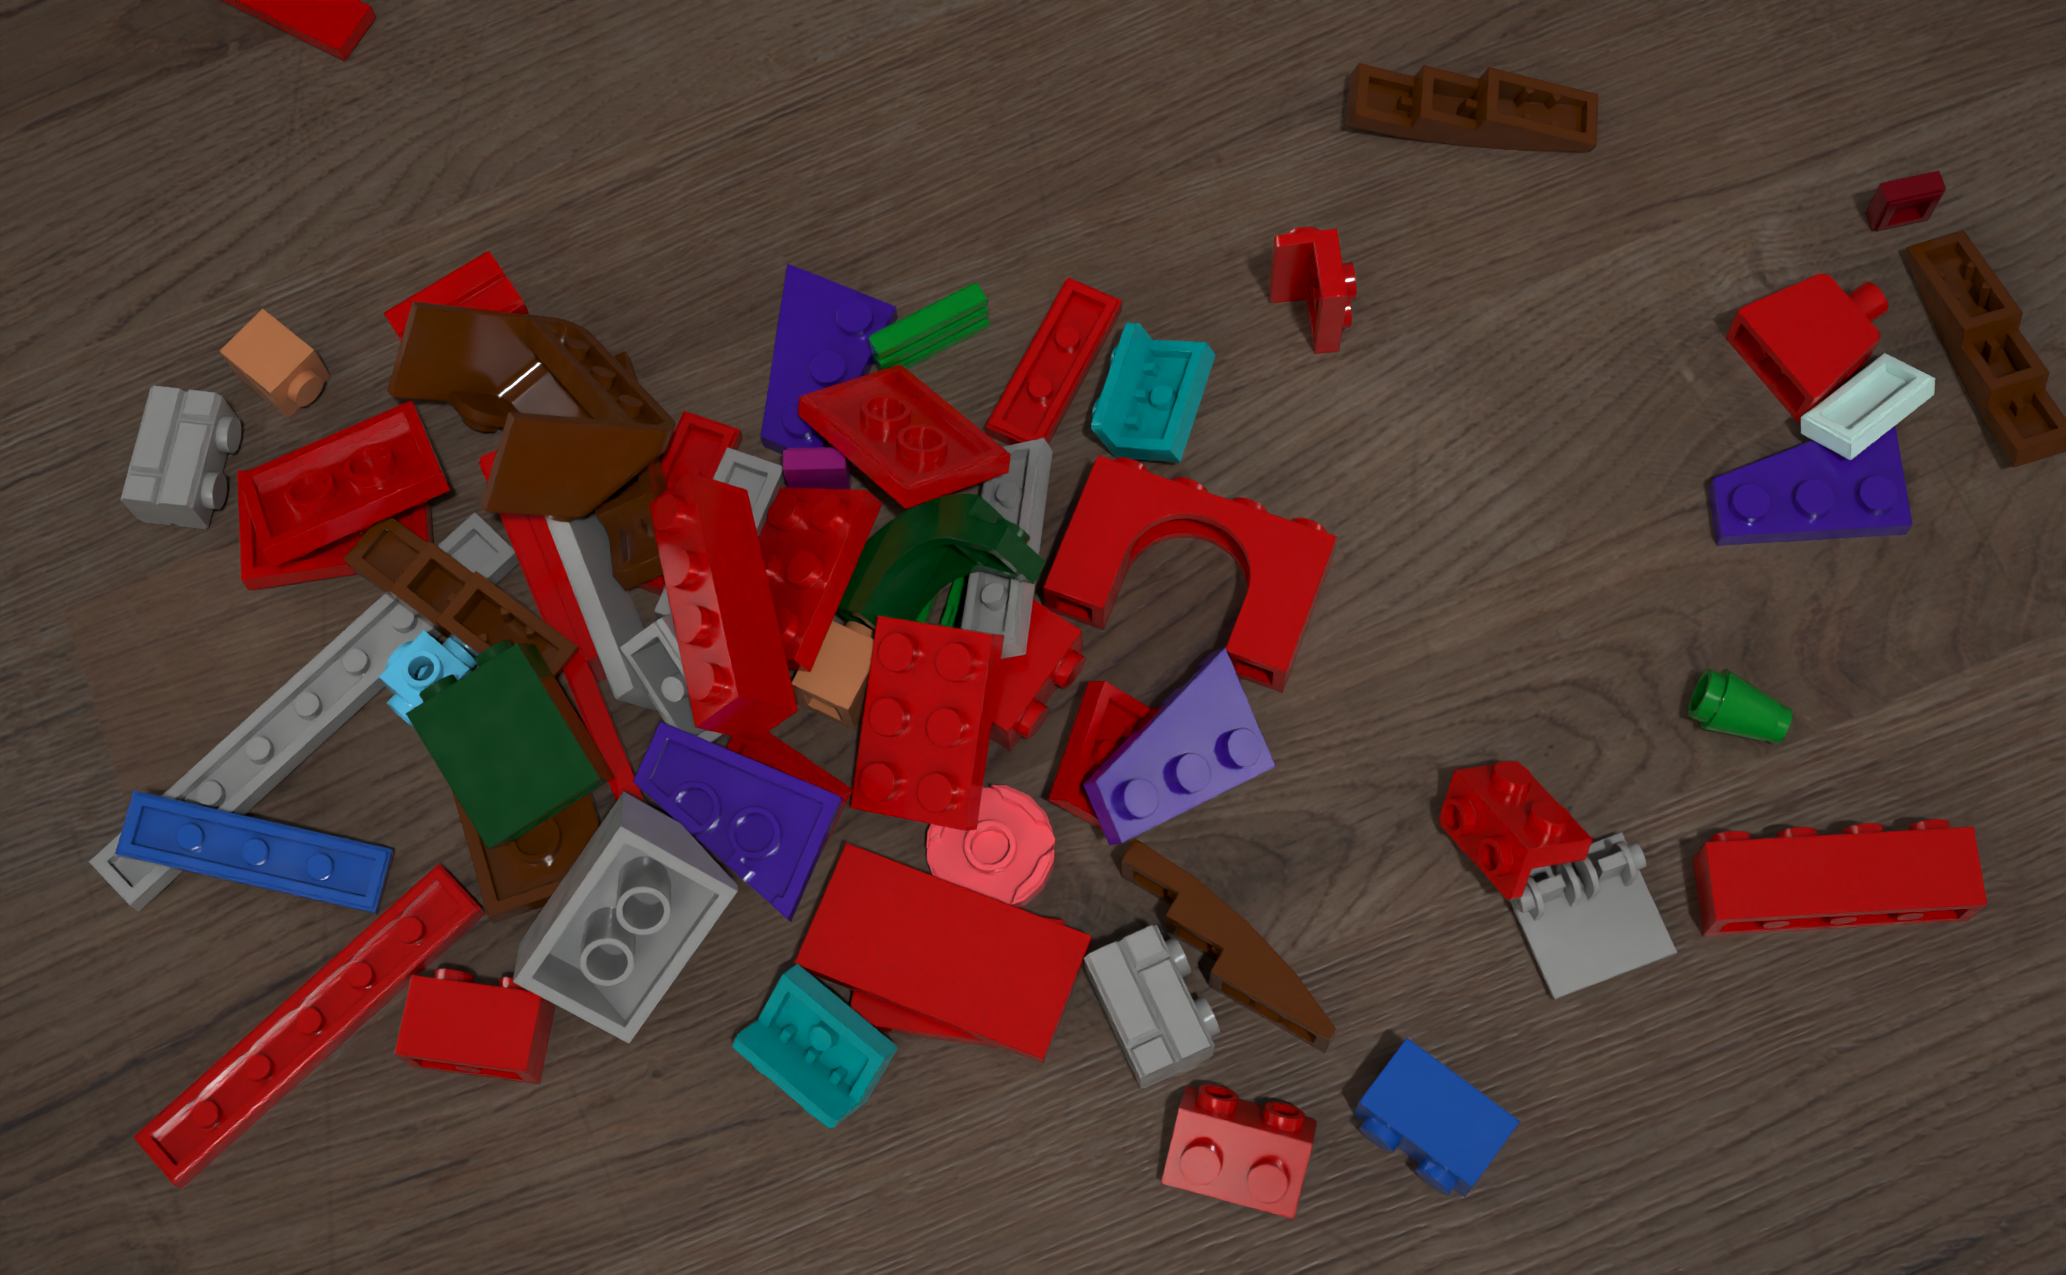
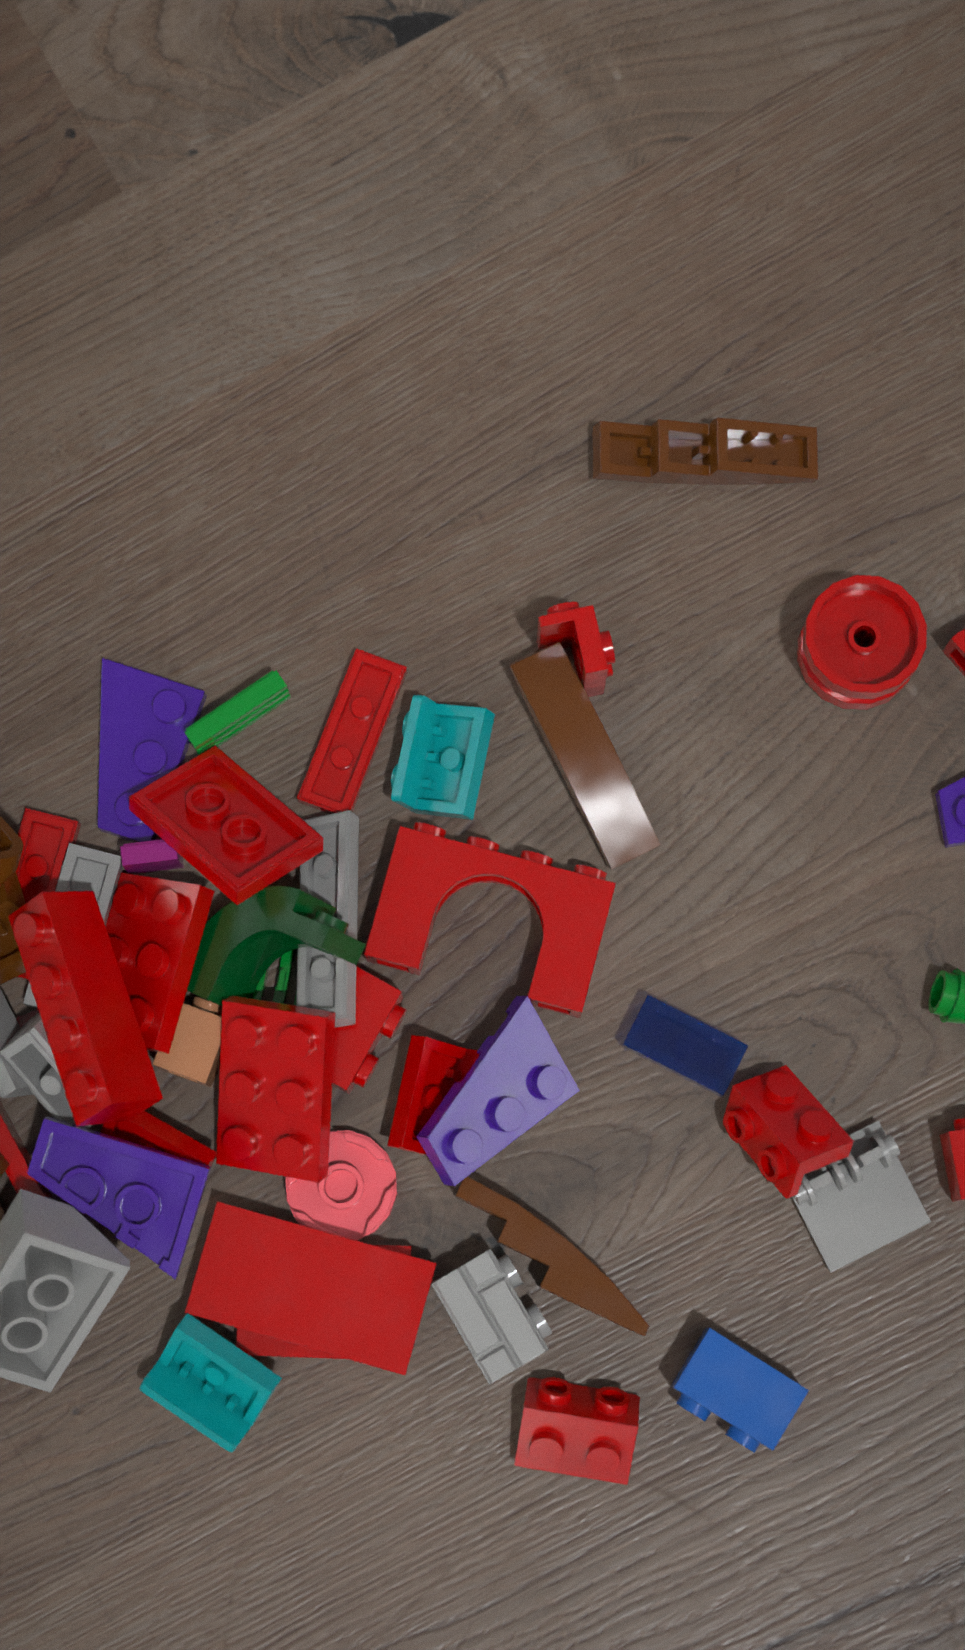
camera: 10 degrees left, 10 degrees up
(1312, 405) = (584, 755): none -> reddish brown slope
(1401, 728) = (685, 1046): none -> clear blue plate
(1635, 309) = (882, 618): none -> red wheel

